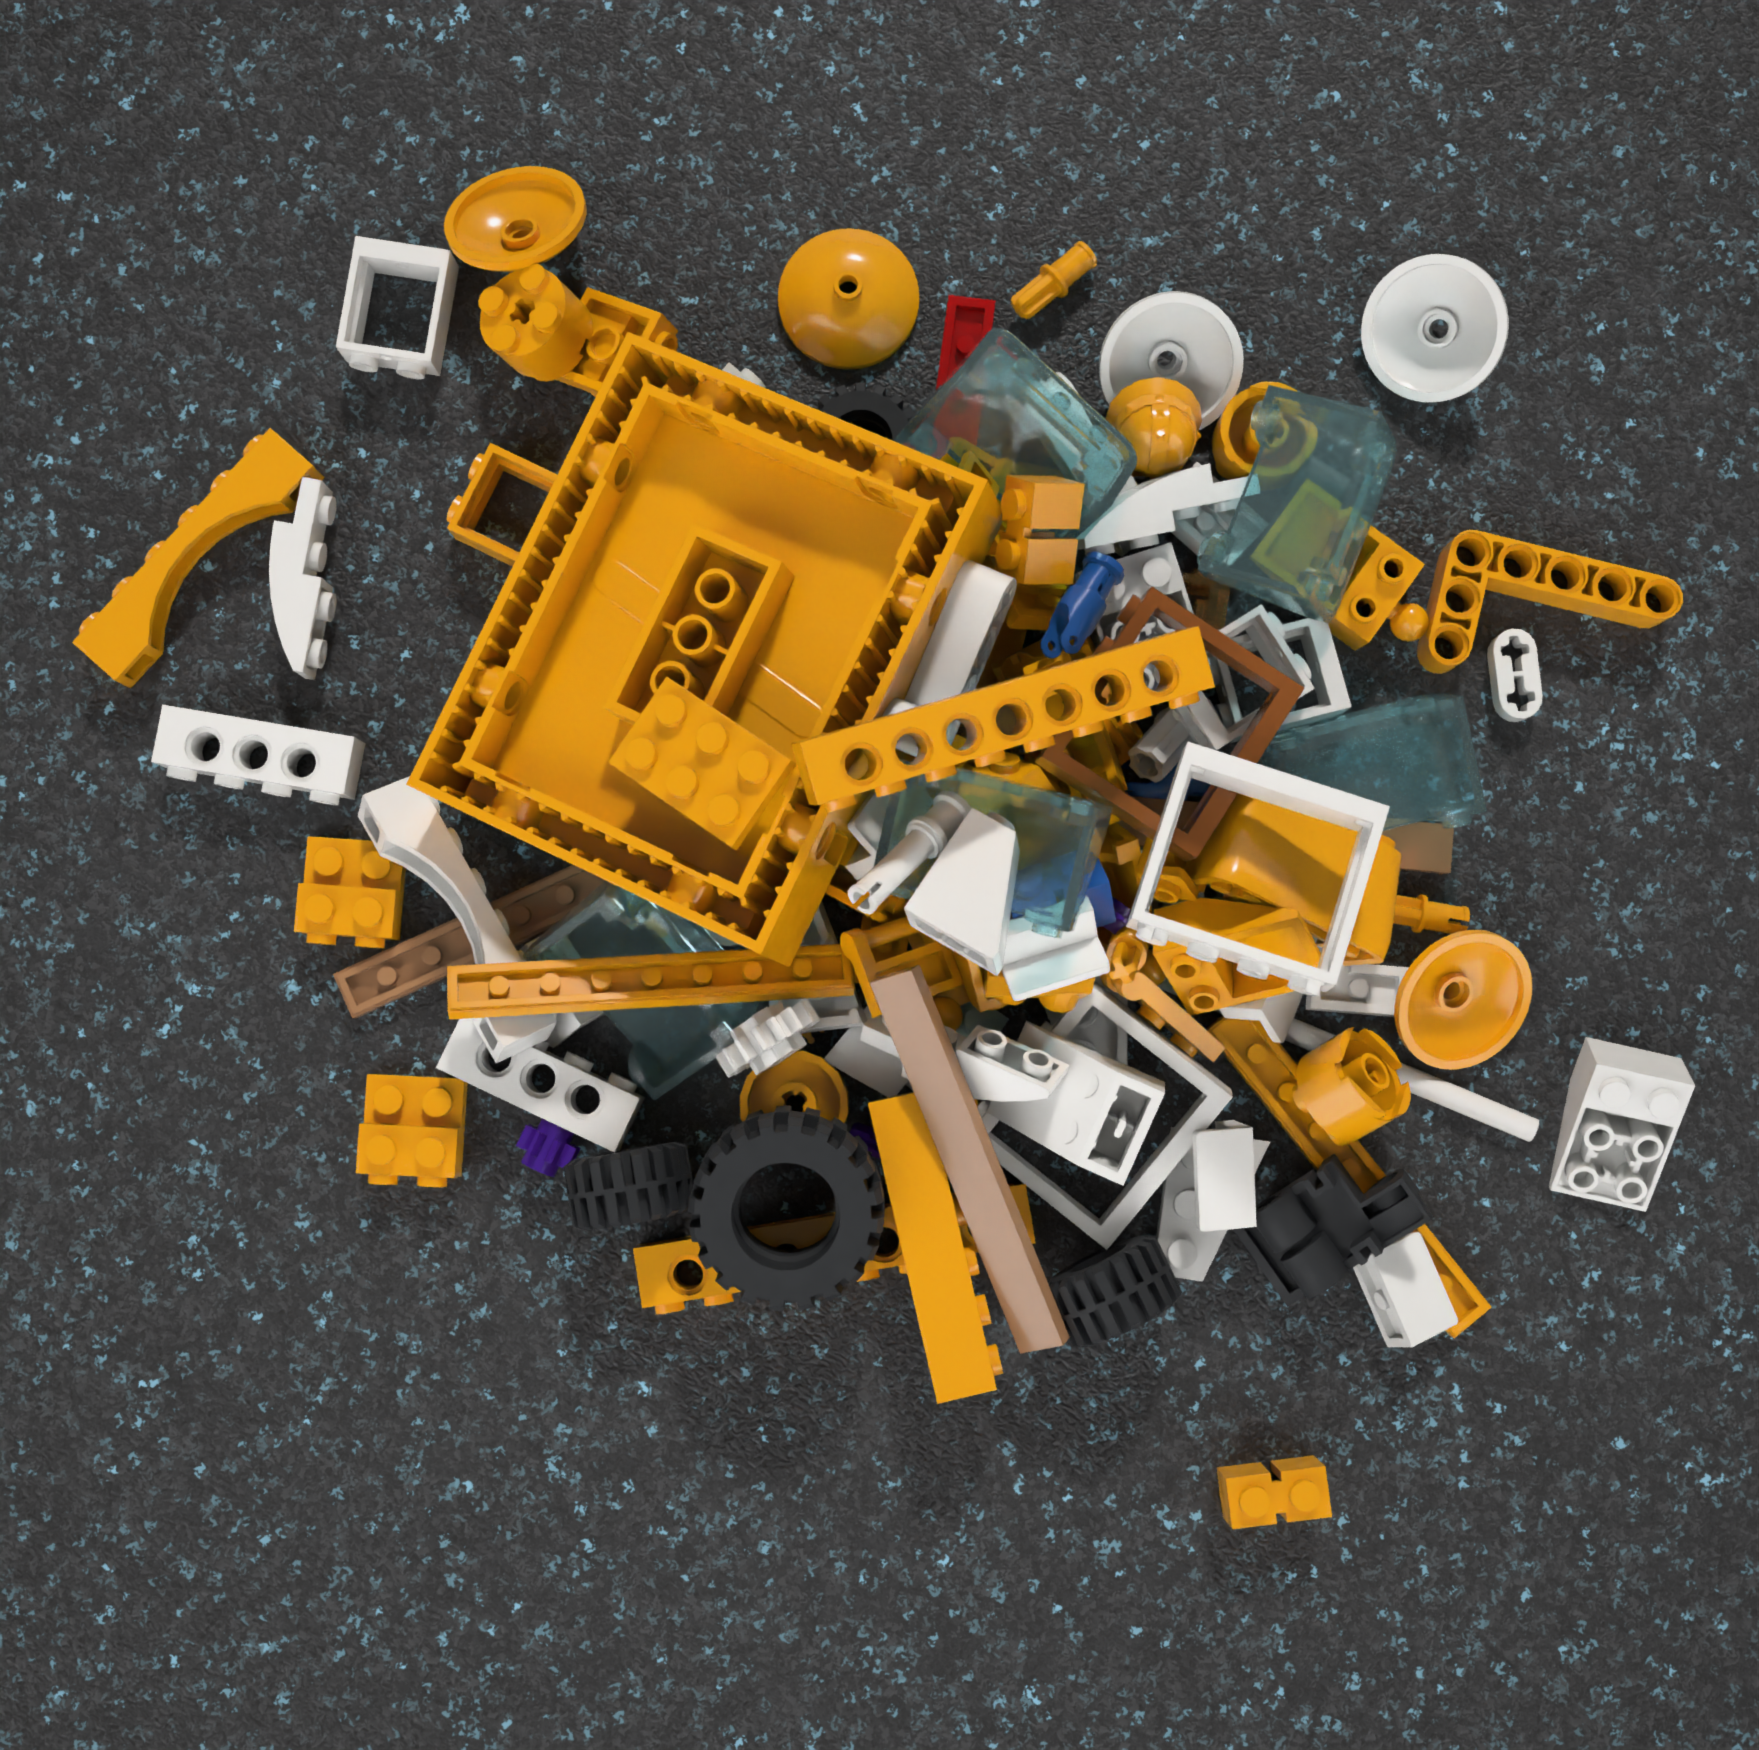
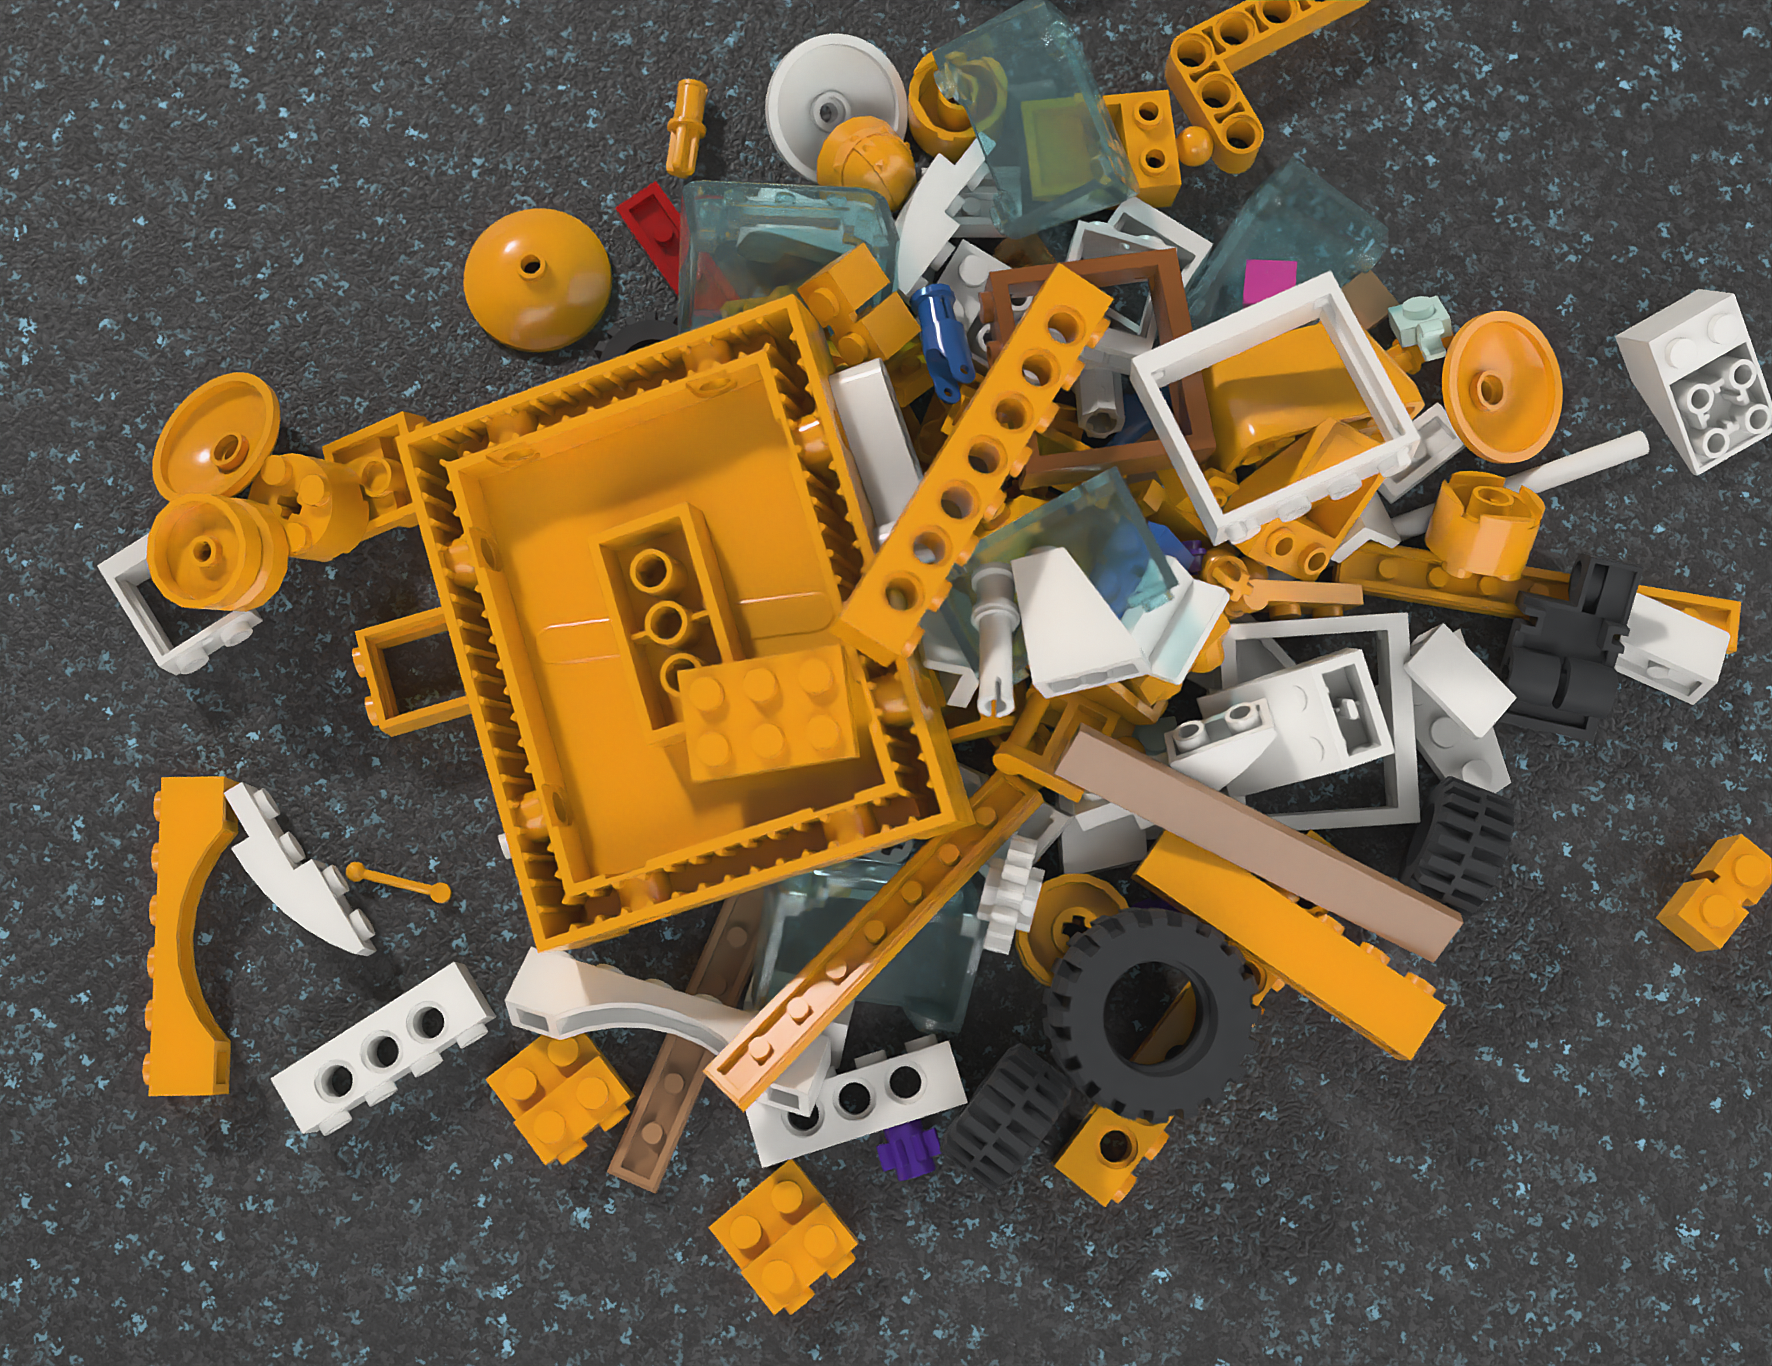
camera: 40 degrees left, 5 degrees down
(391, 678) = (439, 892): none -> light orange hinge
(440, 303) = (217, 552): none -> light orange wheel
(1365, 772) = (1267, 279): none -> dark pink slope
(1449, 900) = (1421, 323): none -> light aqua plate
(1526, 674) = (1307, 118): white beam -> none

